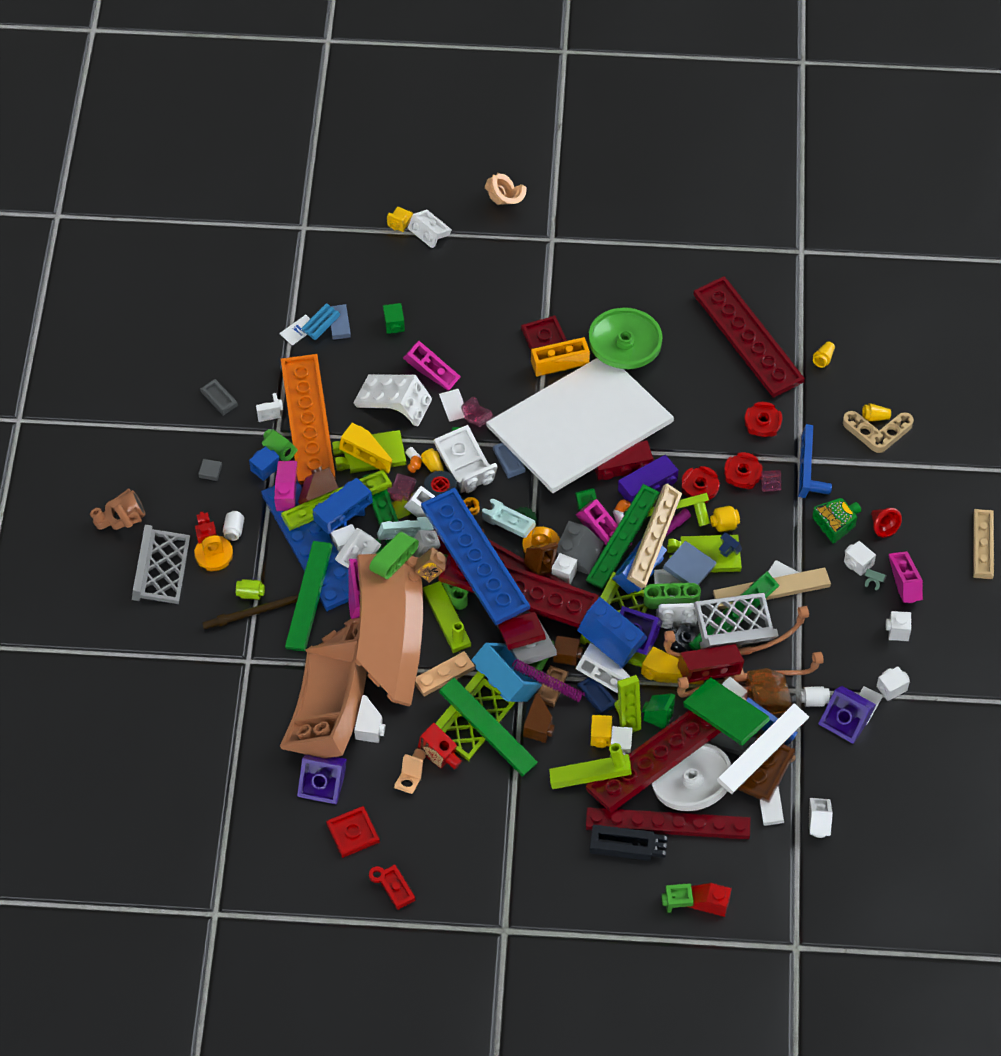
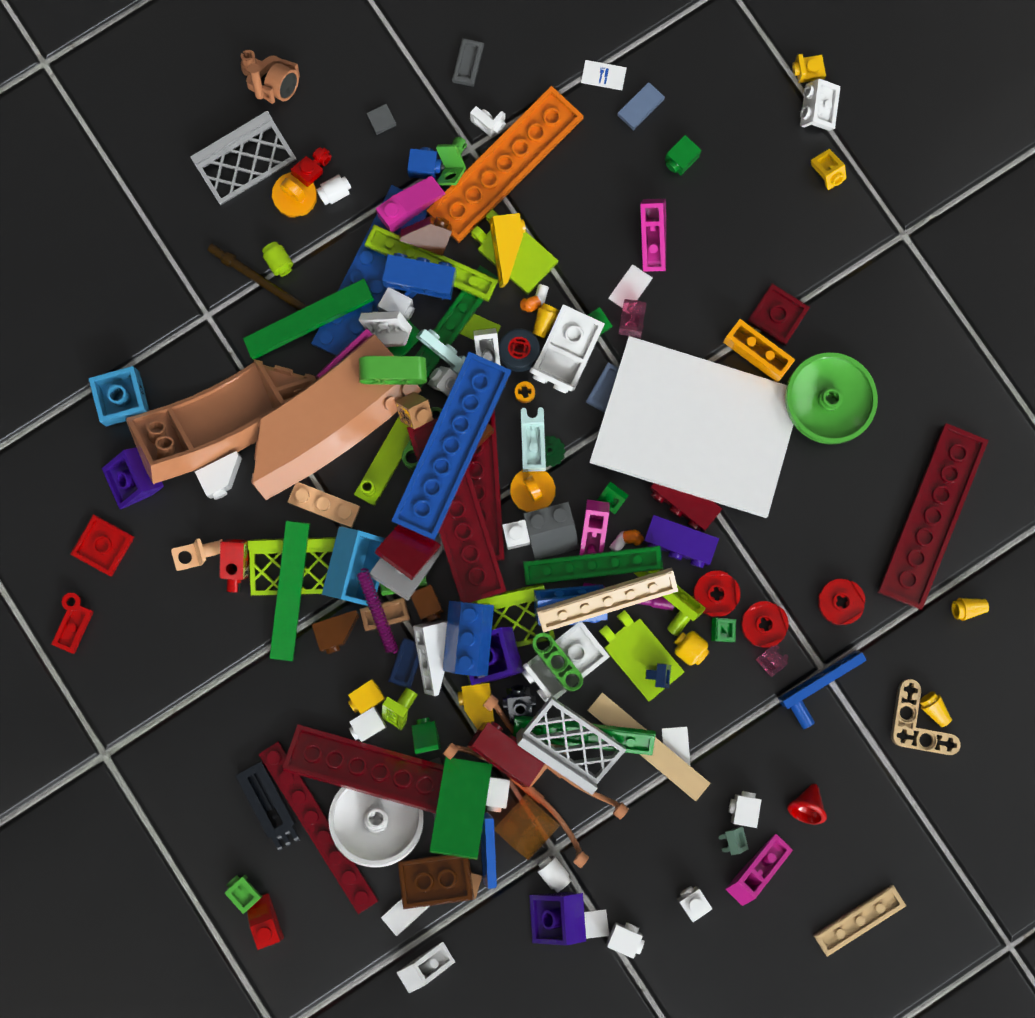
camera: 55 degrees right, 25 degrees up
(258, 744) = (118, 395): none -> dark azure brick
(319, 320) = (624, 85): dark azure tile -> none
(396, 392) = (590, 227): white bracket -> none
(402, 488) = (492, 313): clear pink bracket -> none
(474, 247) = (829, 168): none -> yellow bracket
(503, 191) = (920, 145): light nougat helmet -> none
(541, 558) = (504, 505): reddish brown slope -> none
(591, 771) = (314, 719): lime piece -> none
(689, 564) = (608, 652): sand blue tile -> none
(728, 495) = (723, 630): none -> green tile
(762, 749) = (446, 871): white tile -> none
(836, 518) = (777, 756): green torso -> none

